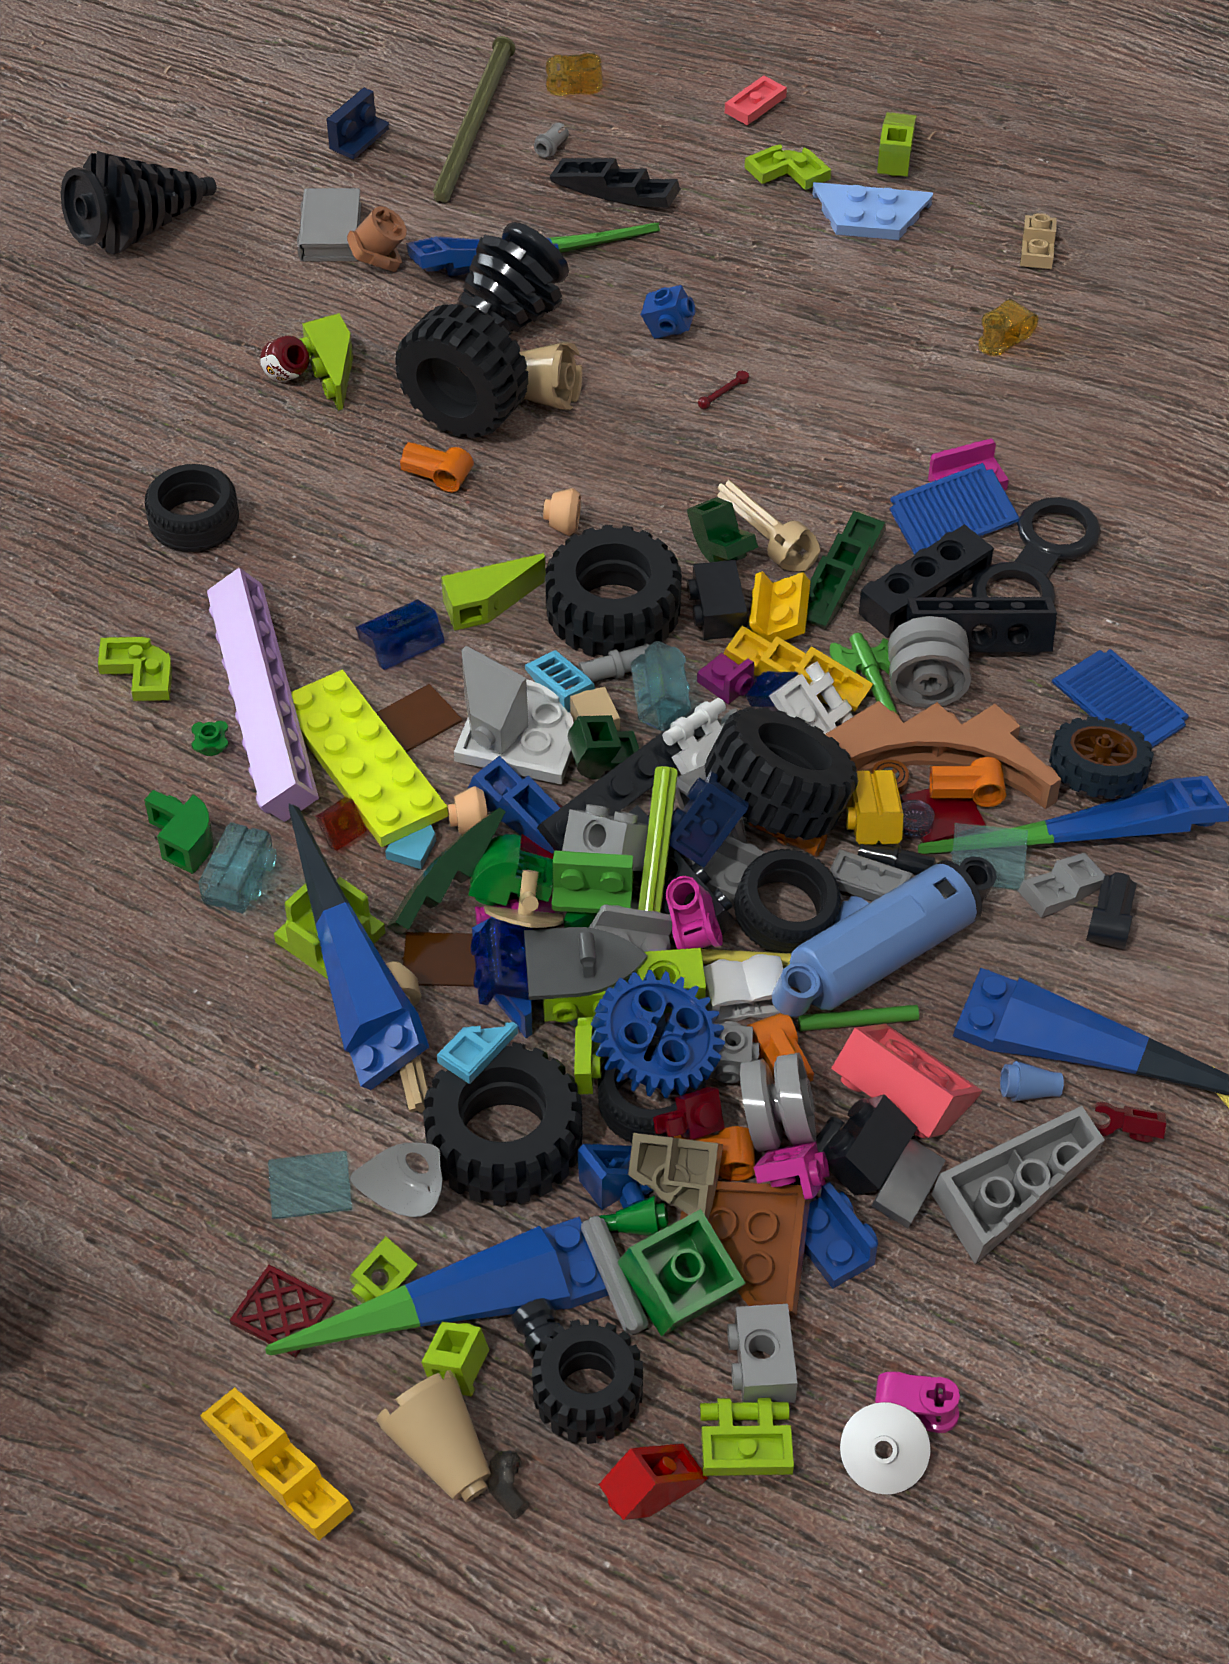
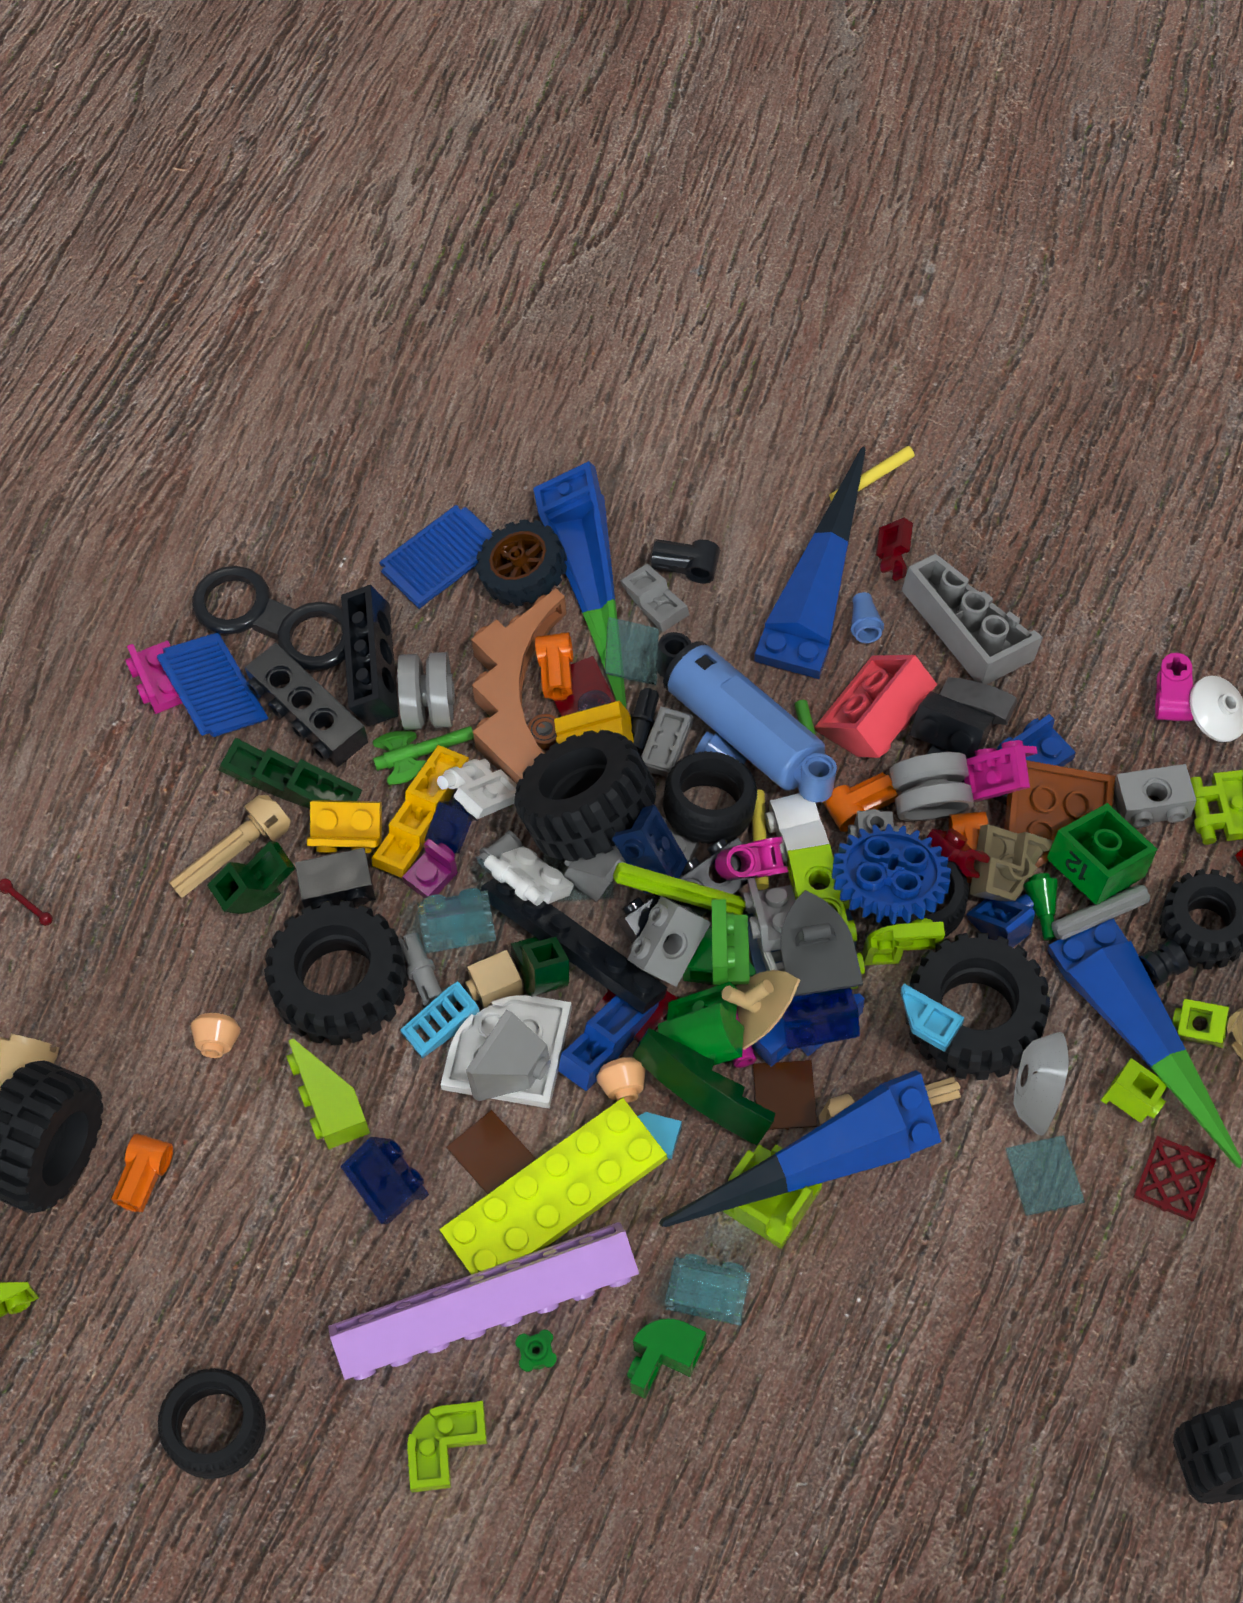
camera: 90 degrees left, 10 degrees up
(341, 823) = (644, 1199): clear red tile -> none

